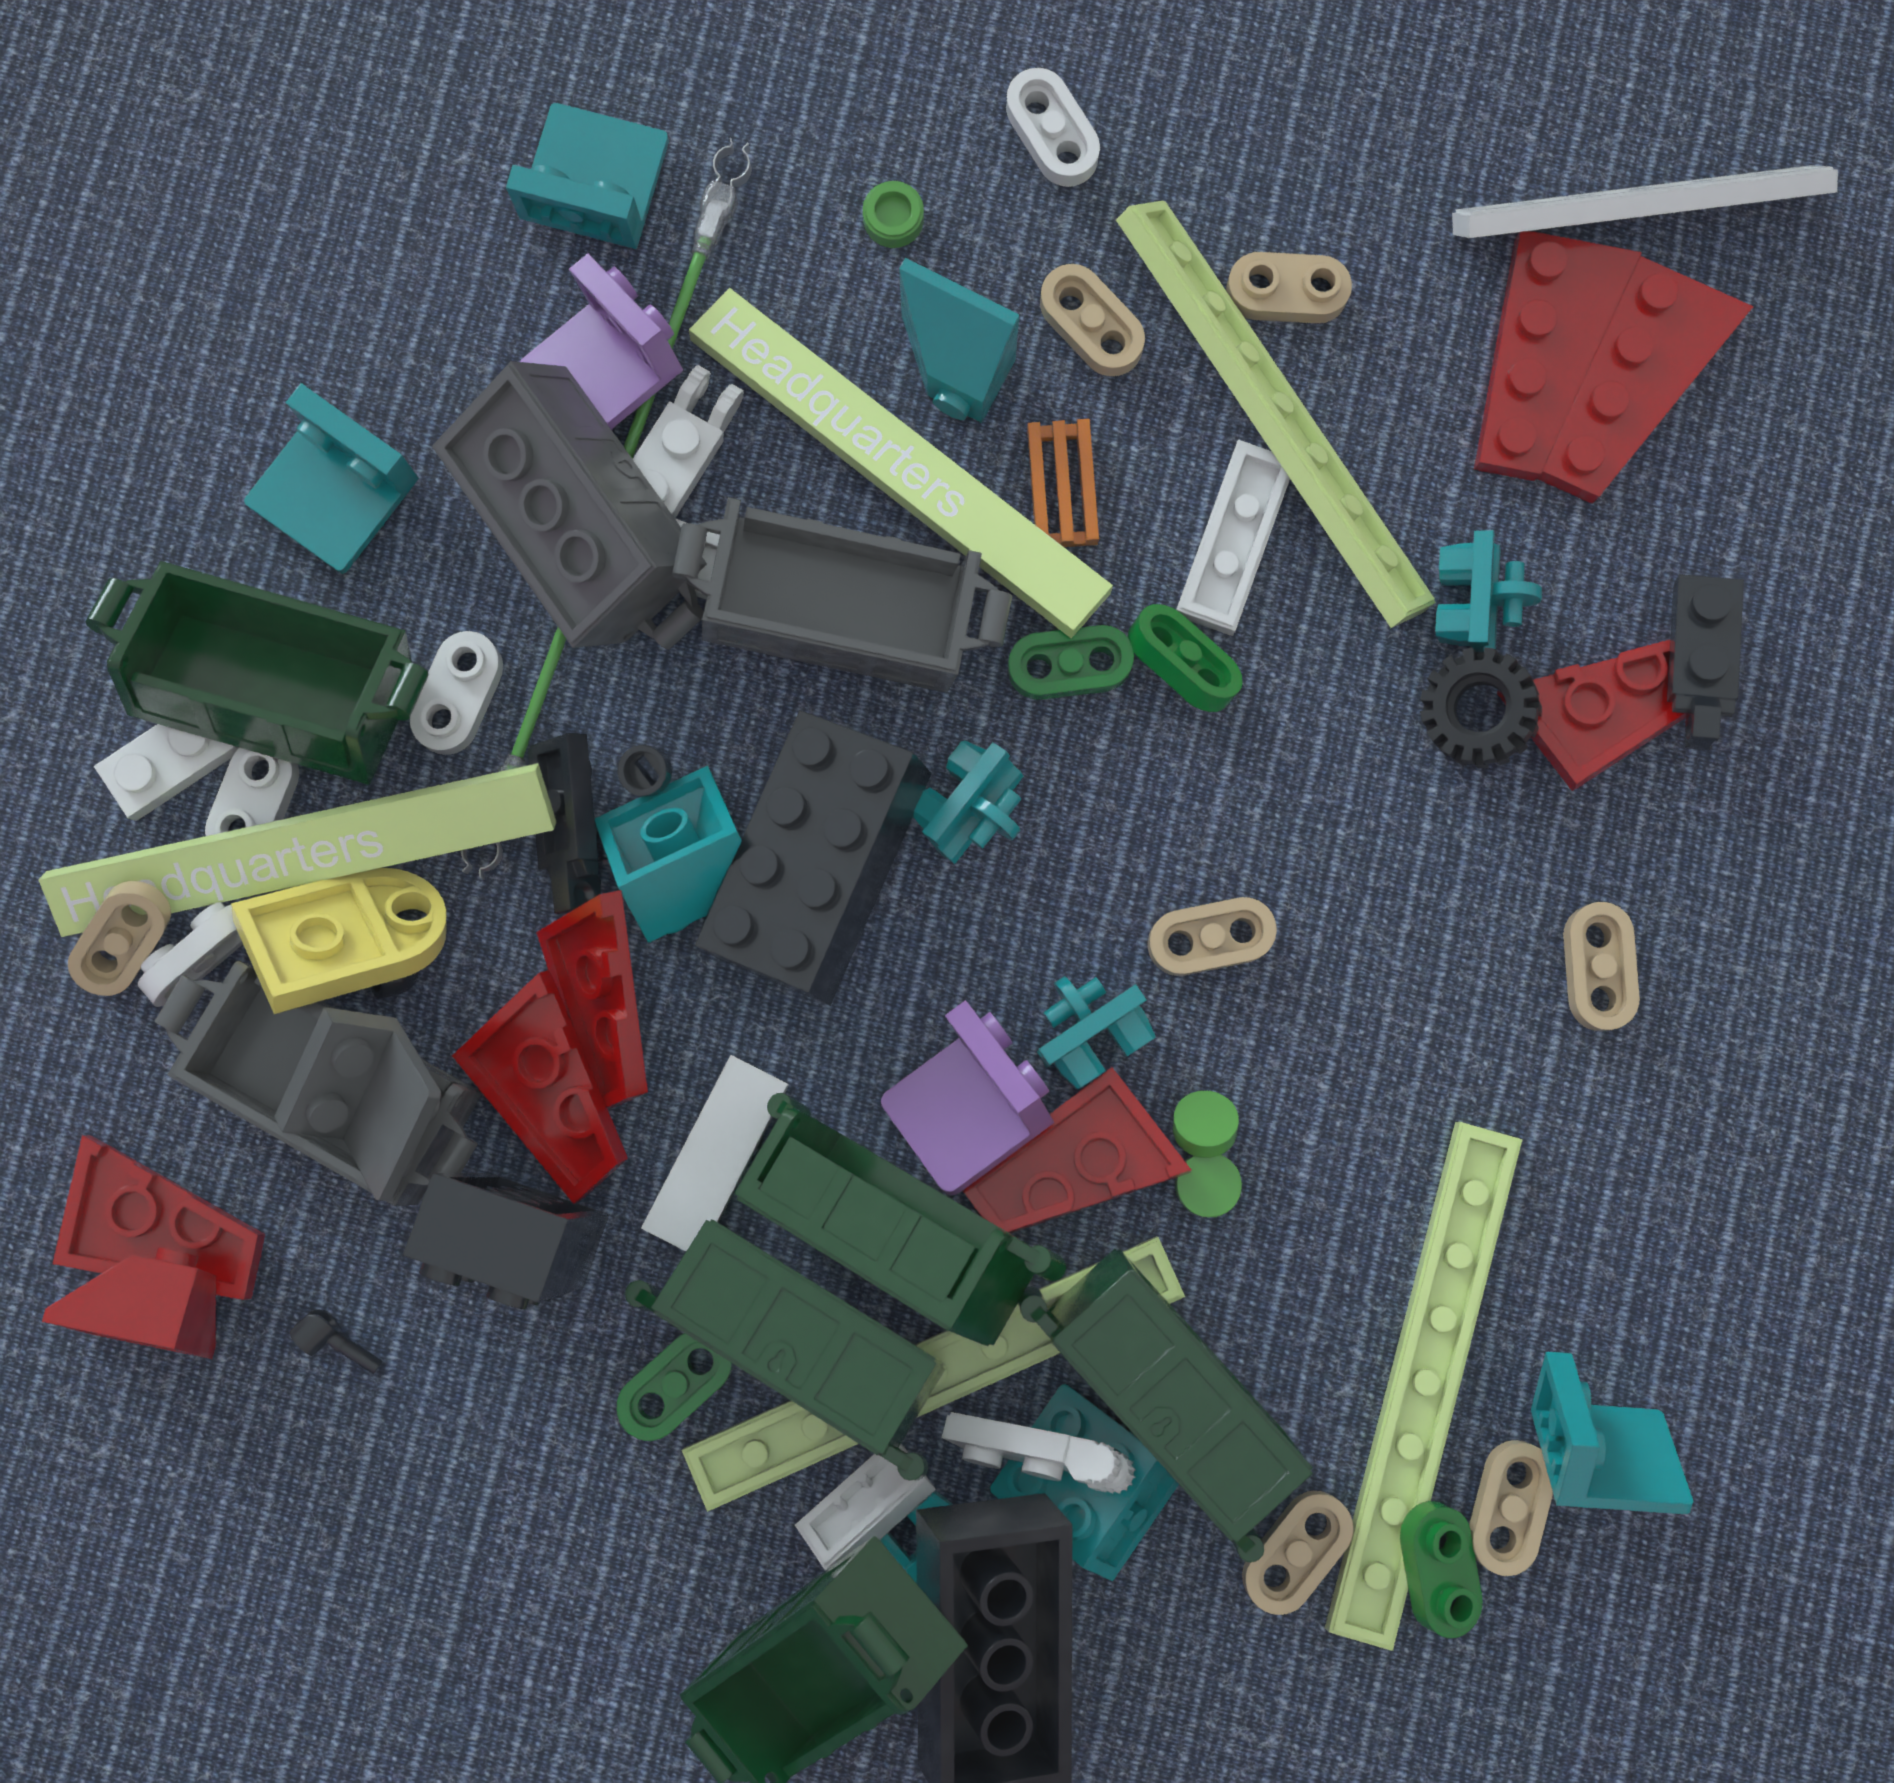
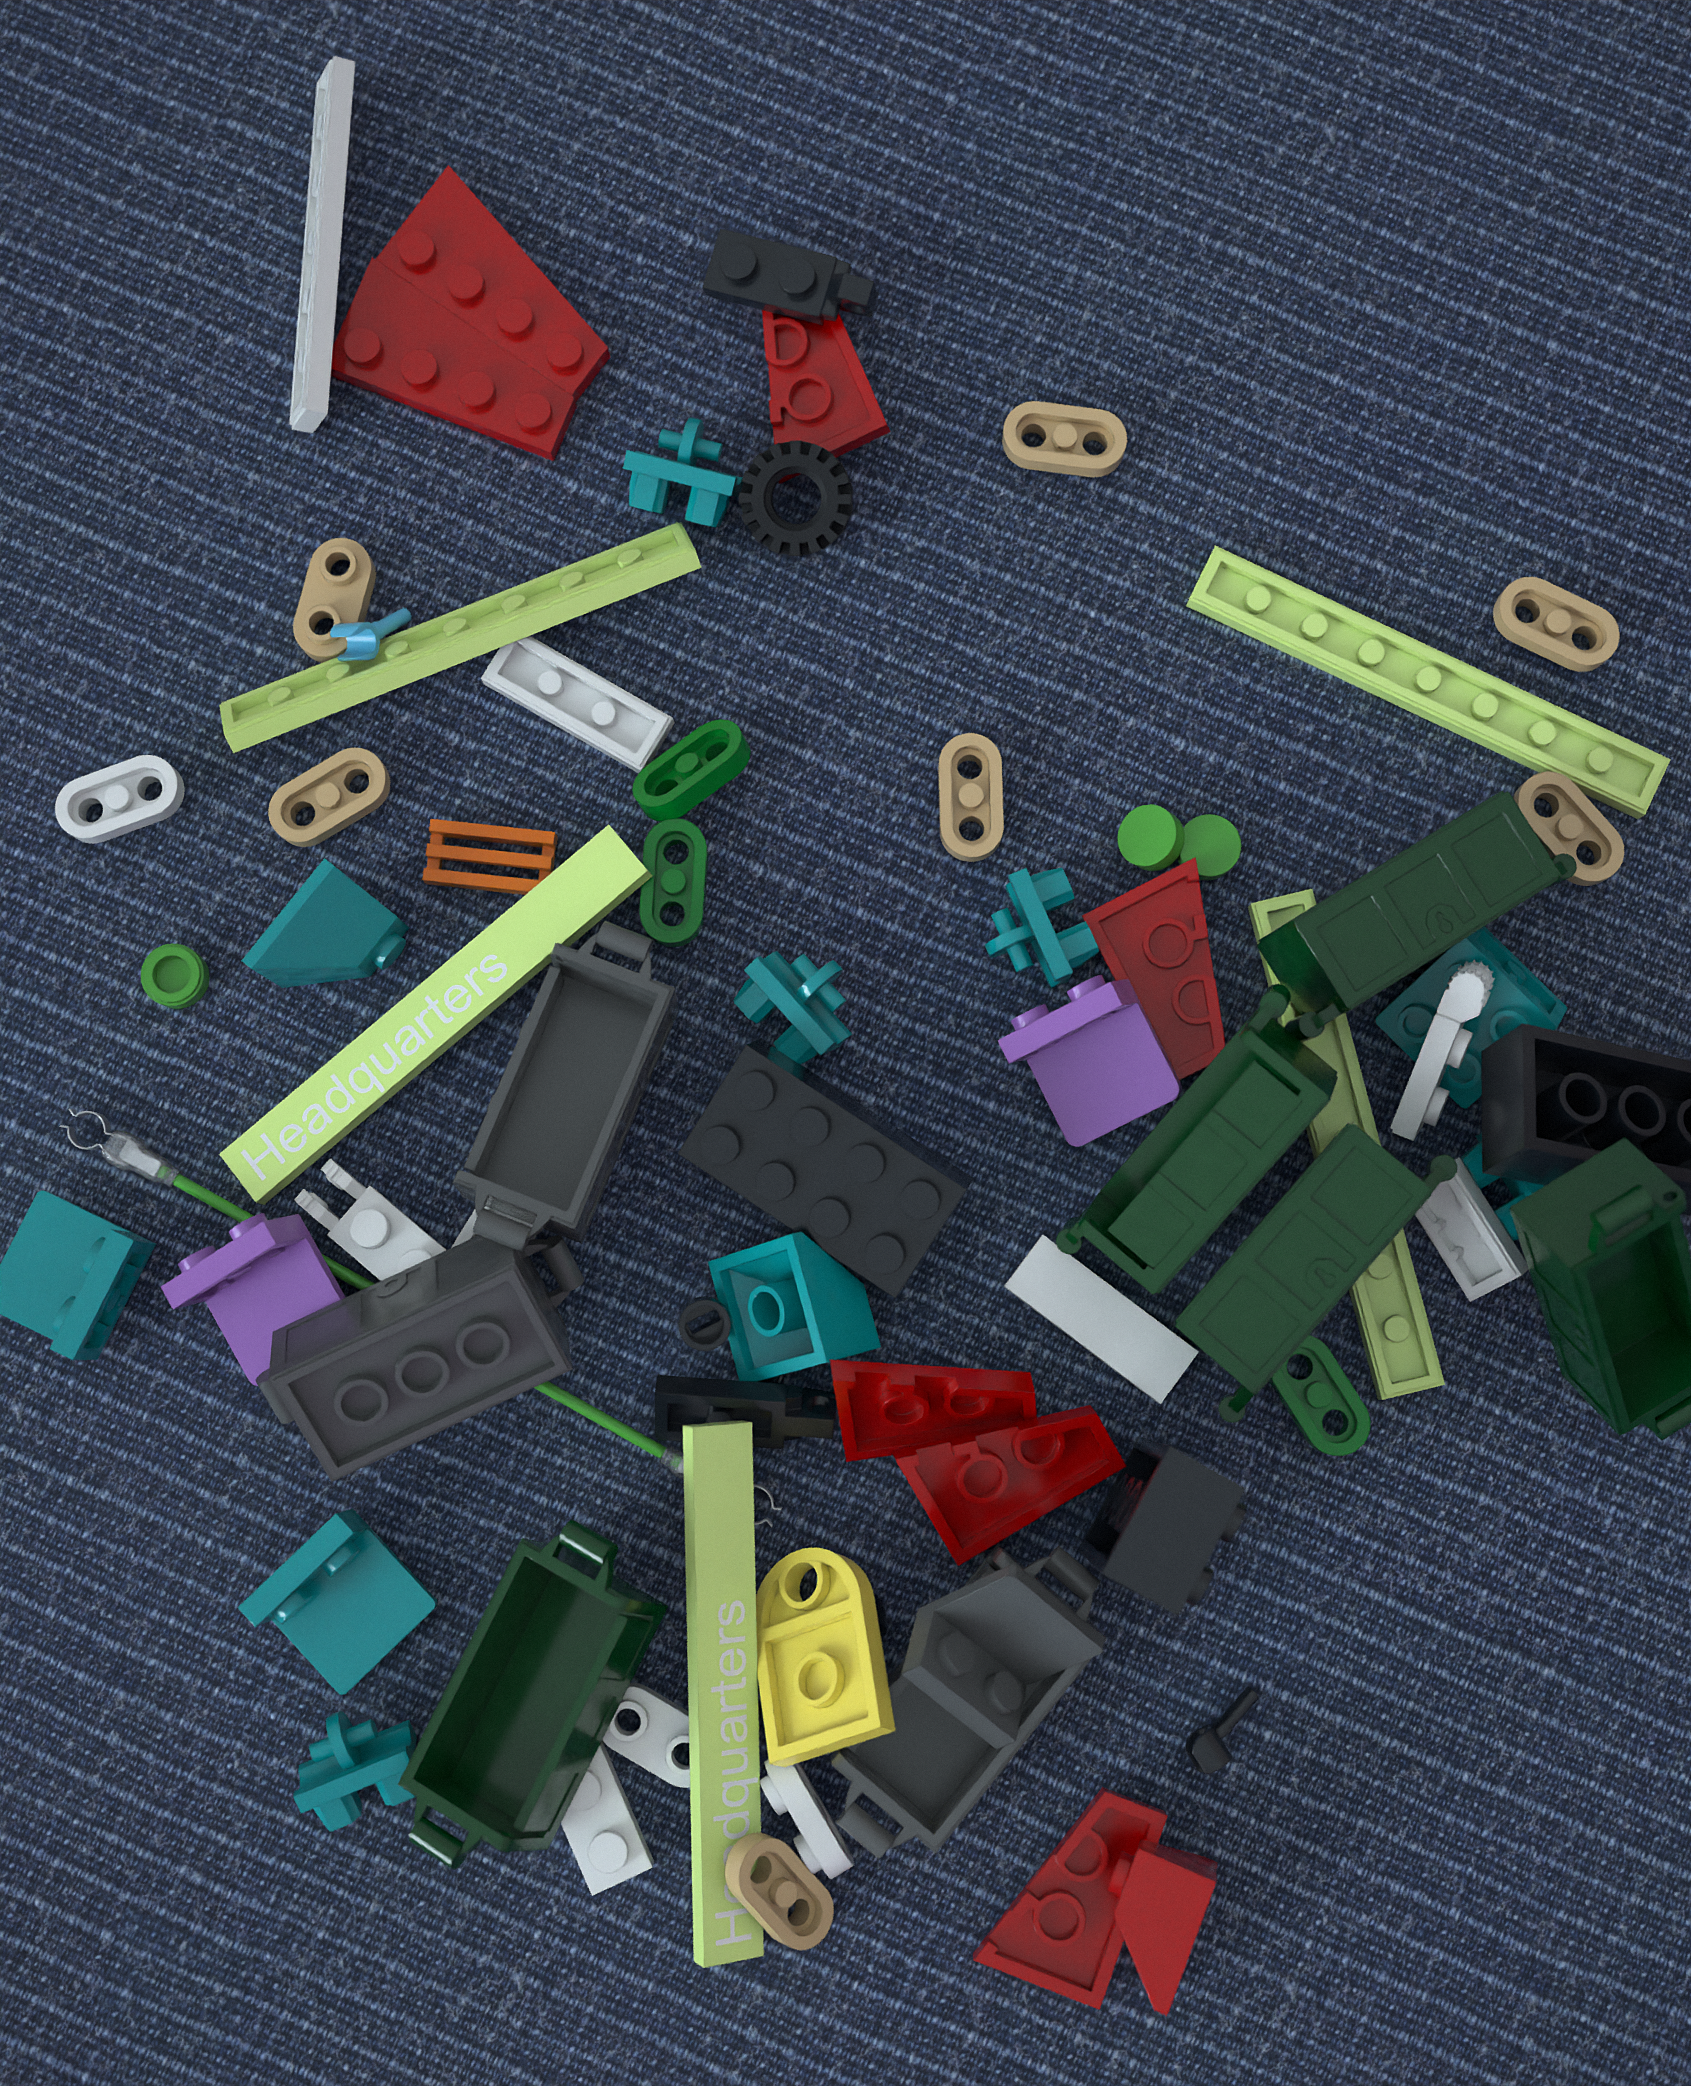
camera: 75 degrees left, 0 degrees up
(182, 520) = (351, 1761): none -> teal hips
(461, 692) = (586, 1500): white plate -> none
(1255, 321) = (365, 637): none -> medium azure hand
(1441, 1574) = (1611, 702): green plate -> none
(1604, 1452) = (1520, 527): teal bracket -> none

